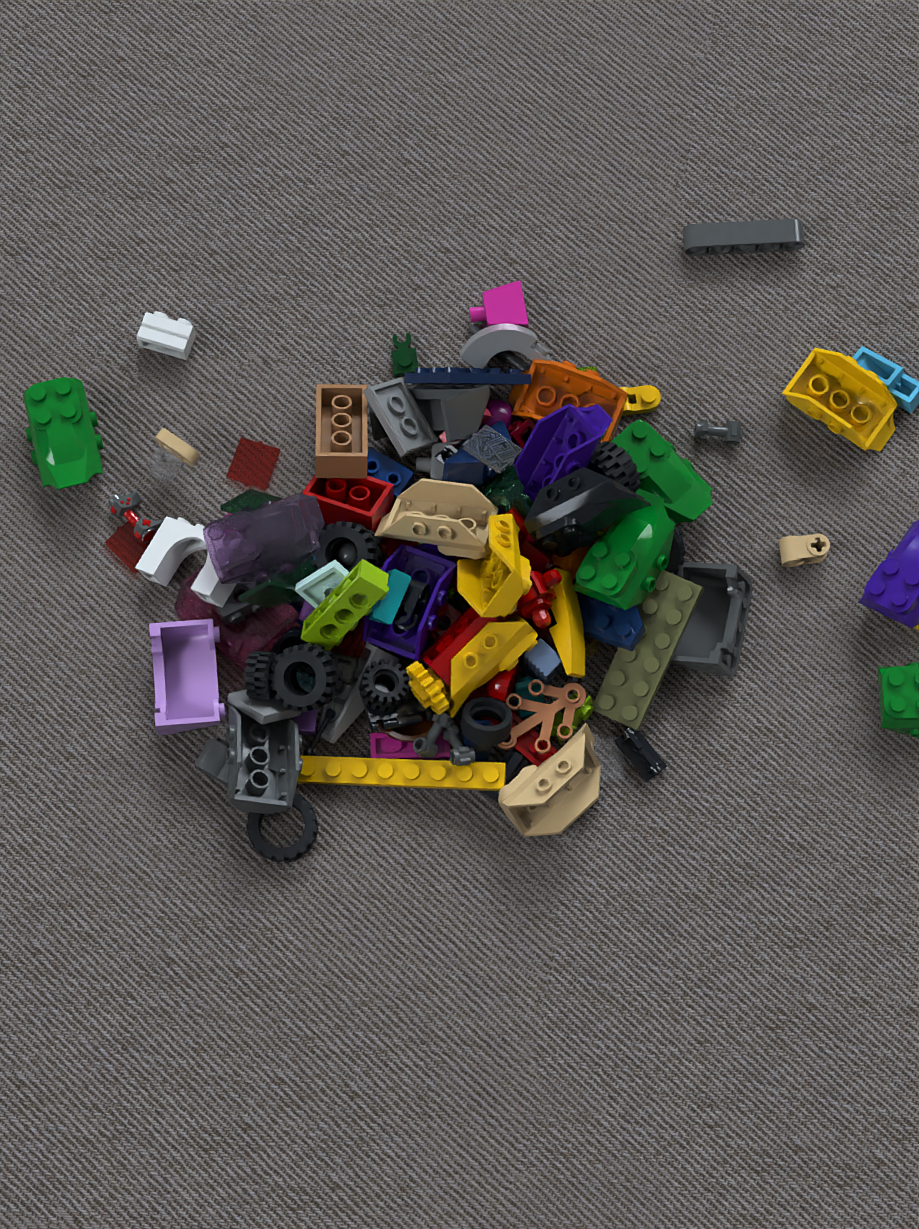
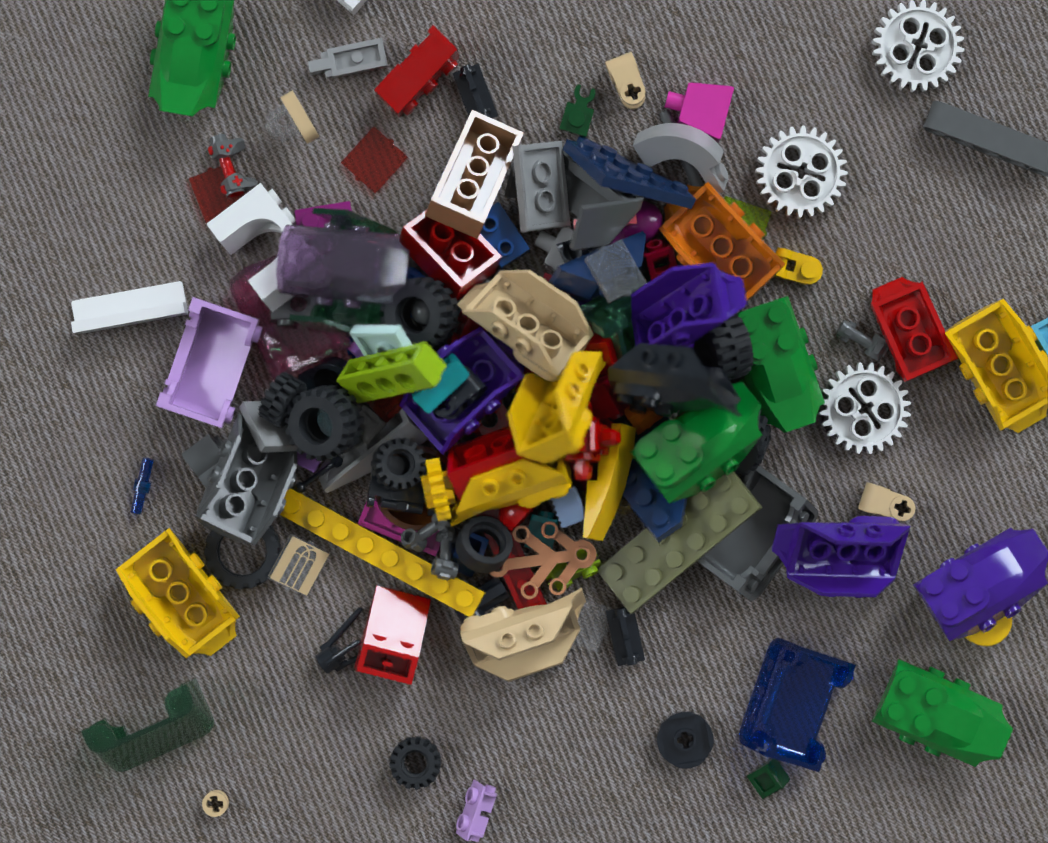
camera: 25 degrees right, 15 degrees up
(97, 668) = (129, 307): none -> white panel
(171, 810) = (142, 485): none -> clear blue bar
(198, 393) = (350, 59): none -> light grey hinge
(245, 884) = (179, 596): none -> yellow slope
(259, 377) = (418, 73): none -> red wedge
(274, 1018) = (187, 722): none -> clear green windscreen
(309, 373) = (474, 91): none -> black hinge
(335, 816) = (298, 565): none -> piece
(350, 1065) = (221, 796): none -> tan bush
(399, 882) = (332, 657): none -> black plant
(429, 312) = (626, 76): none -> tan piece
(444, 839) = (393, 635): none -> slope
(512, 924) = (410, 779): none -> black tyre
(581, 947) = (470, 823): none -> lavender hinge
(601, 304) = (794, 197): none -> white gear
(627, 194) = (940, 55): none -> white gear
(729, 831) = (694, 726): none -> black plate
(755, 405) = (911, 328): none -> red slope
(758, 464) = (844, 423): none -> white gear
(787, 599) = (842, 557): none -> dark purple slope
(807, 743) = (792, 703): none -> clear blue windscreen
(819, 819) = (768, 778): none -> dark green slope

